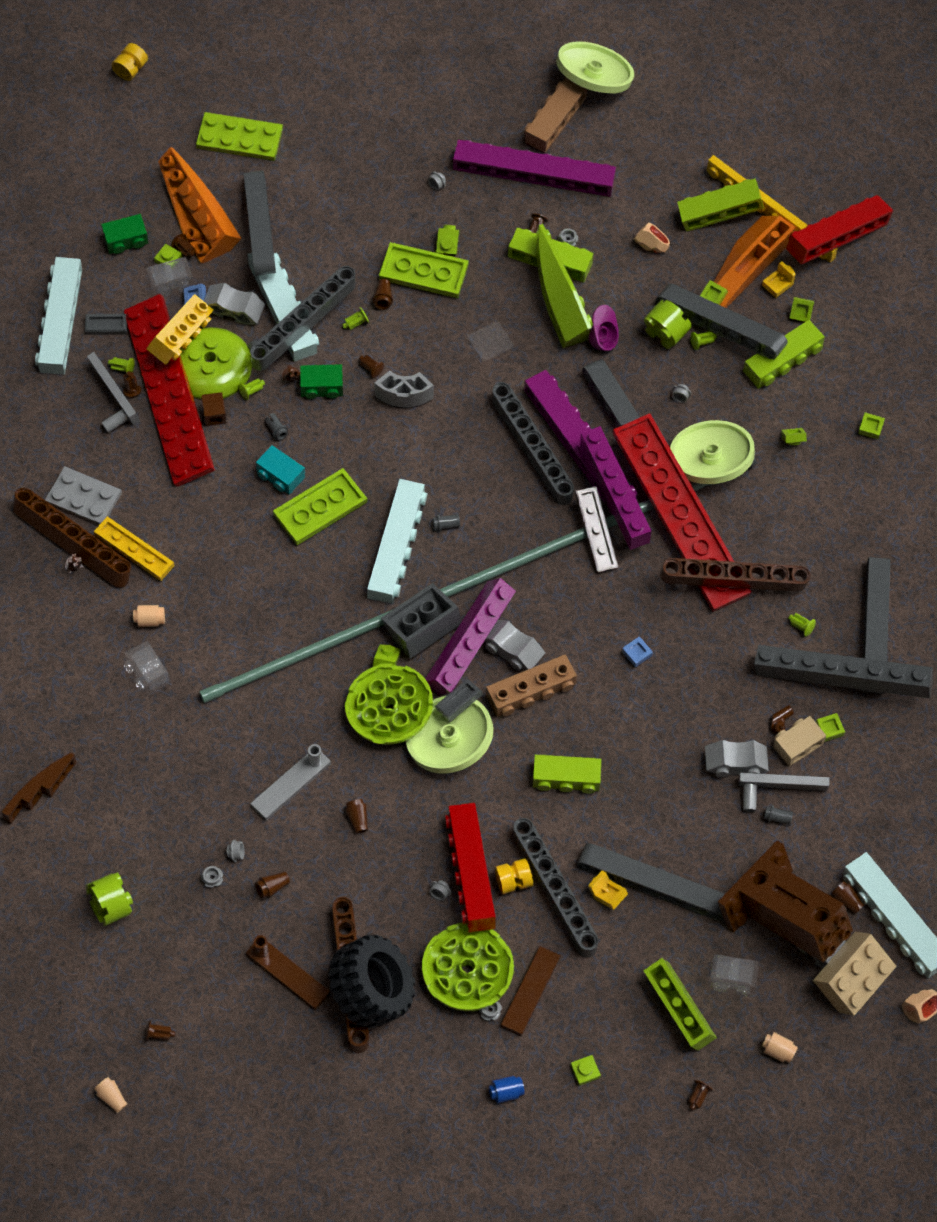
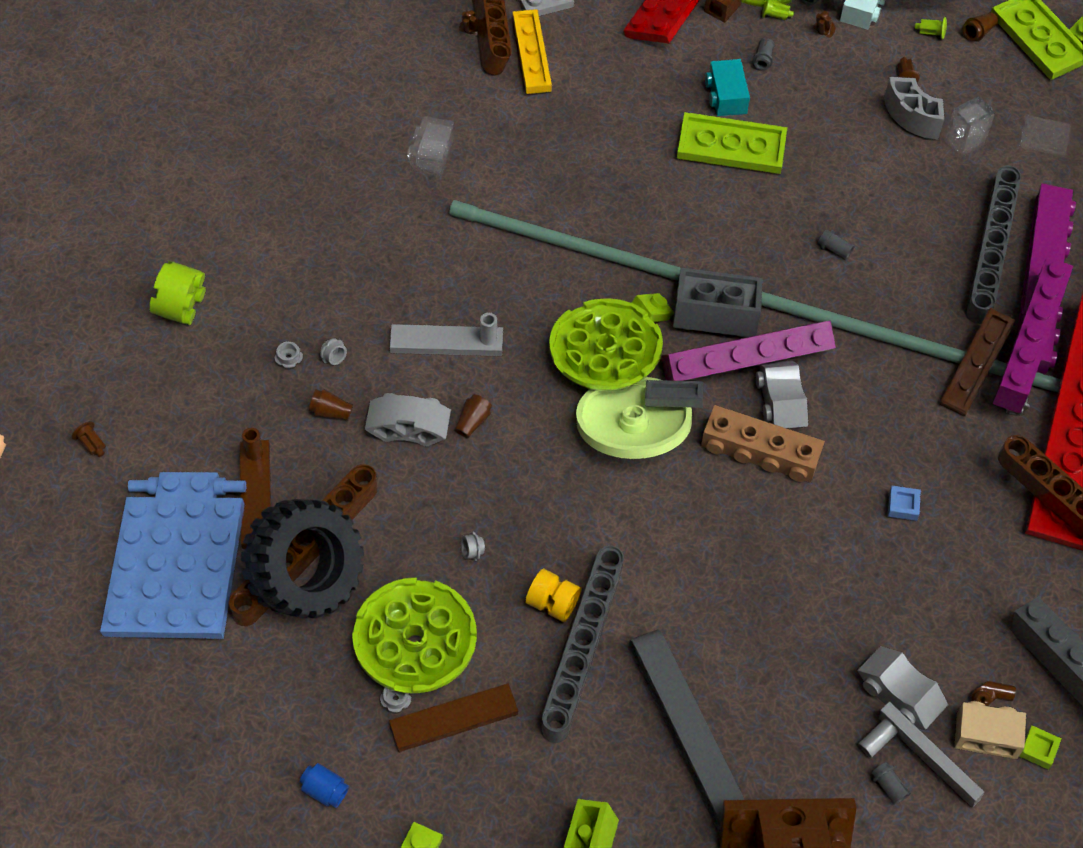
camera: 45 degrees right, 5 degrees down
(43, 783) = (226, 161): reddish brown slope -> none
(149, 615) = (482, 109): light nougat brick -> none
(287, 1049) = (175, 558): none -> medium blue plate
(321, 381) = (845, 48): green brick -> none
(326, 850) = (408, 419): none -> light grey brick
(396, 540) = (769, 222): light aqua brick -> none
(449, 376) = (969, 126): none -> clear brick
(471, 867) = (518, 549): red brick -> none
(567, 773) = (710, 550): lime brick -> none
(607, 891) = (630, 691): yellow bracket -> none

